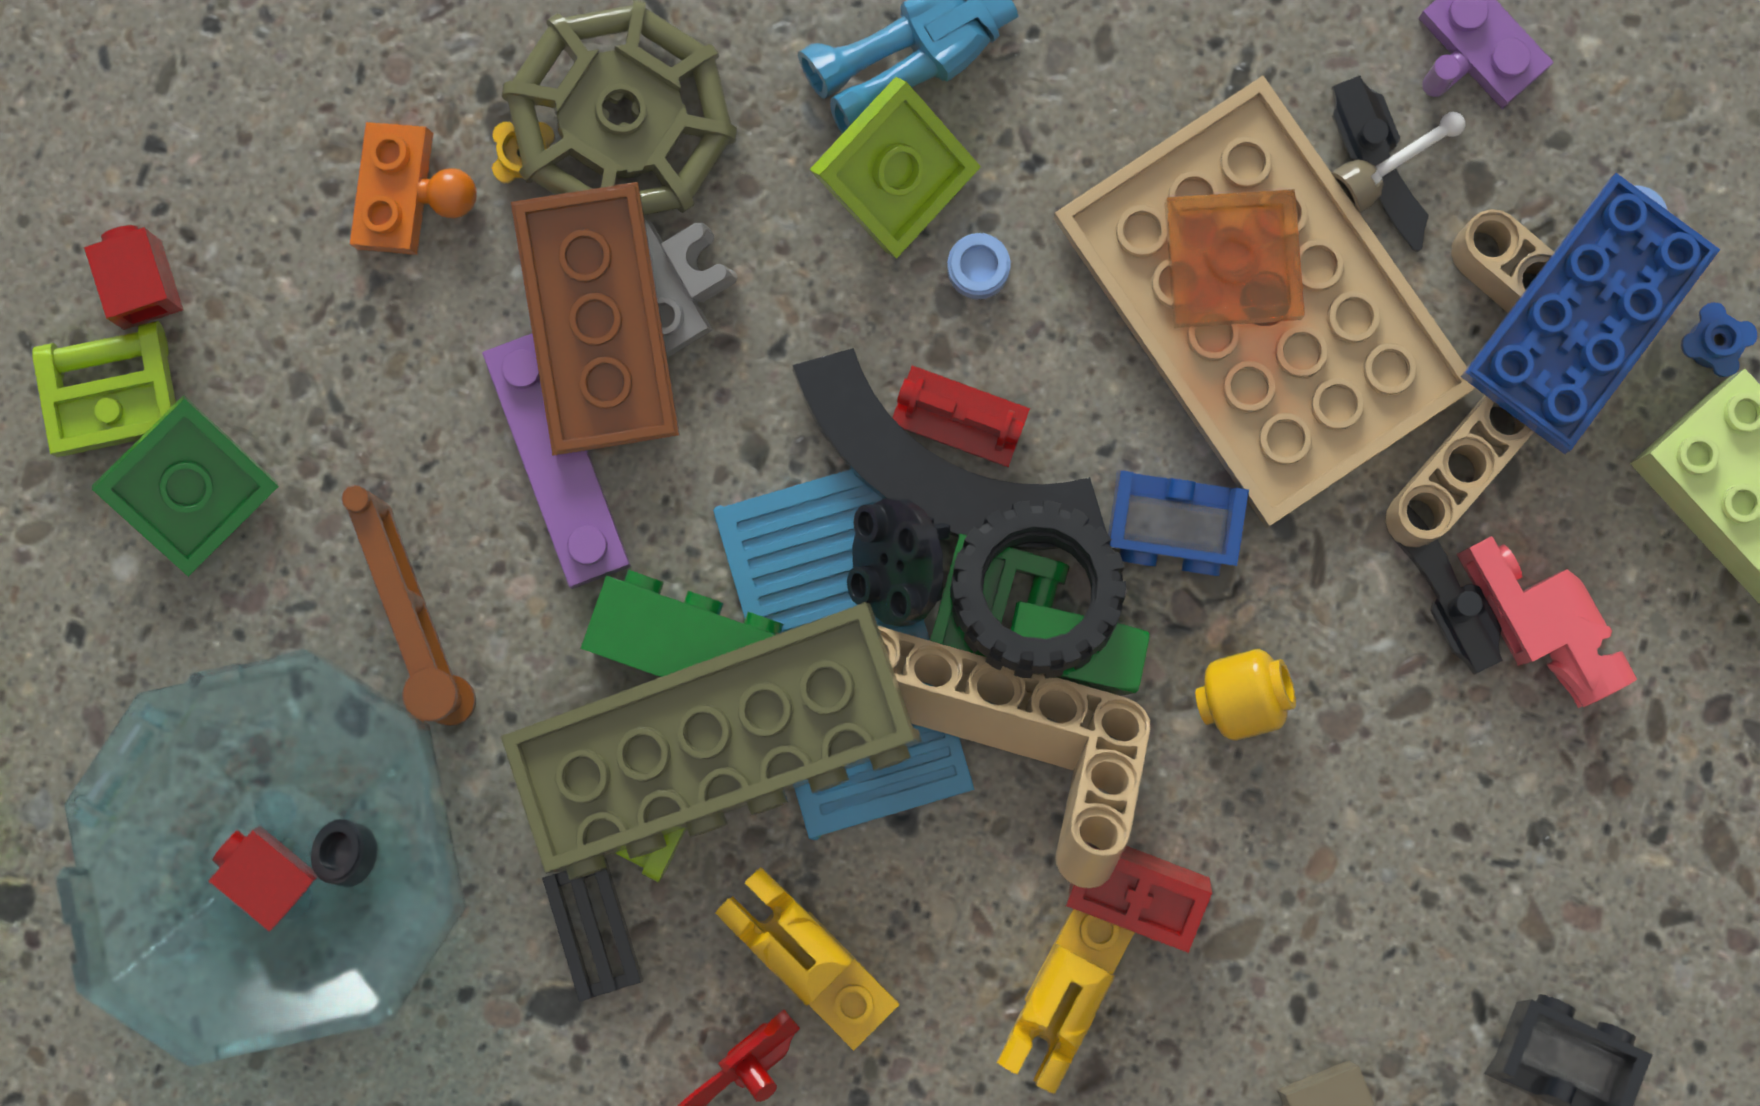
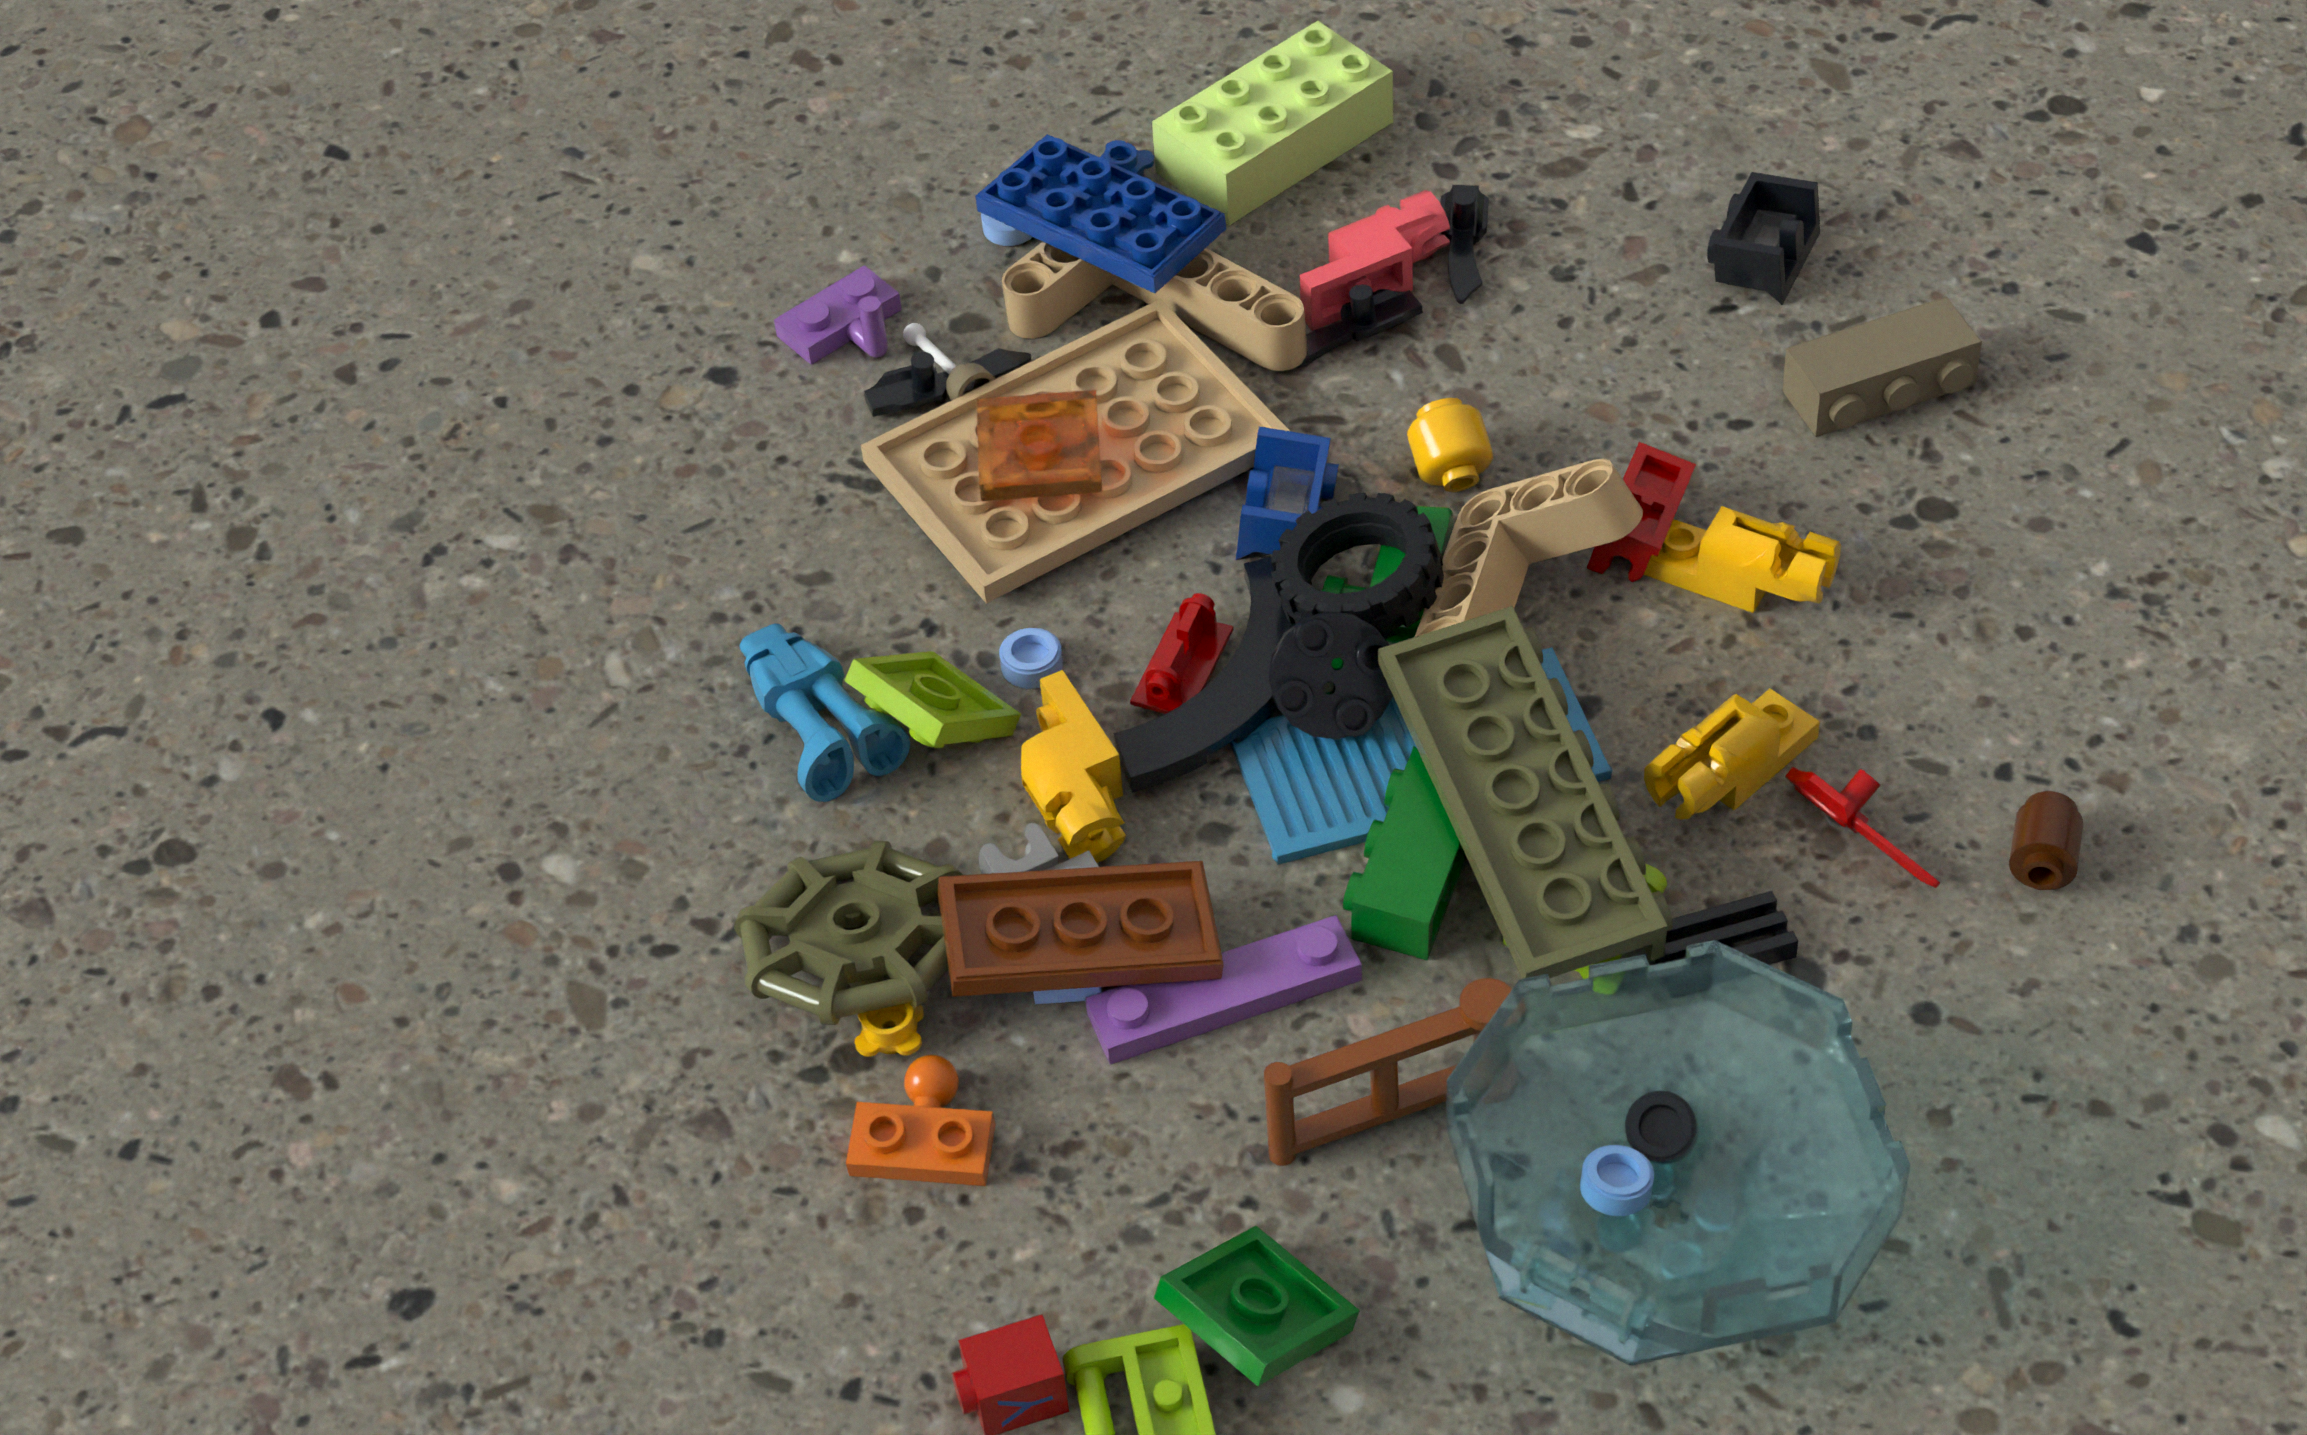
camera: 90 degrees left, 35 degrees down
(261, 875) = (1695, 1186): red brick -> none
(290, 808) = (1617, 1180): none -> light blue tile
(811, 308) = (1073, 772): none -> yellow plate
(1614, 724) = (1468, 221): none -> black piece

